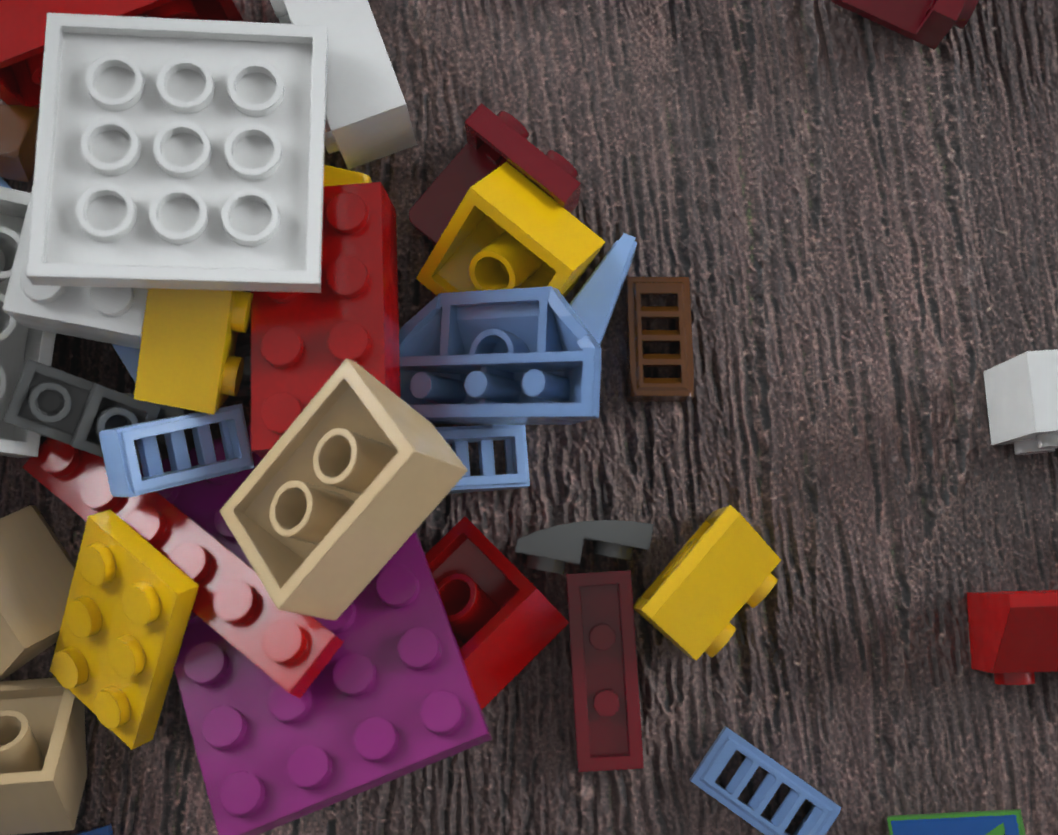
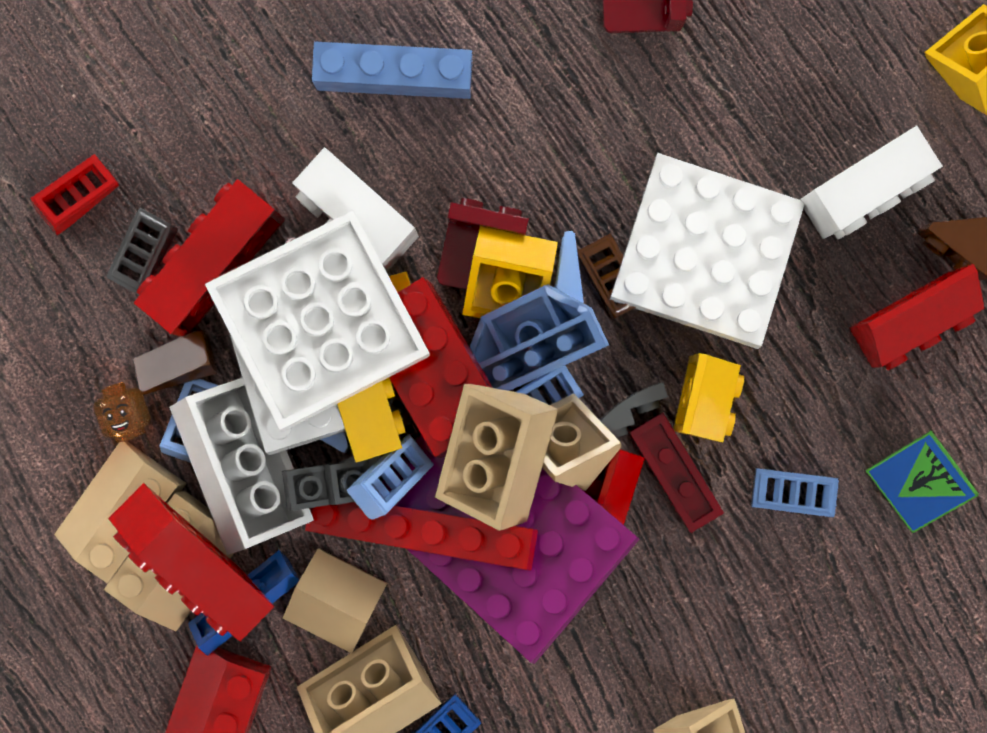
camera: 30 degrees left, 5 degrees up
(122, 628) = (412, 585): yellow plate -> none
(474, 547) = (578, 445): none -> tan slope
(816, 374) = (708, 251): none -> white plate

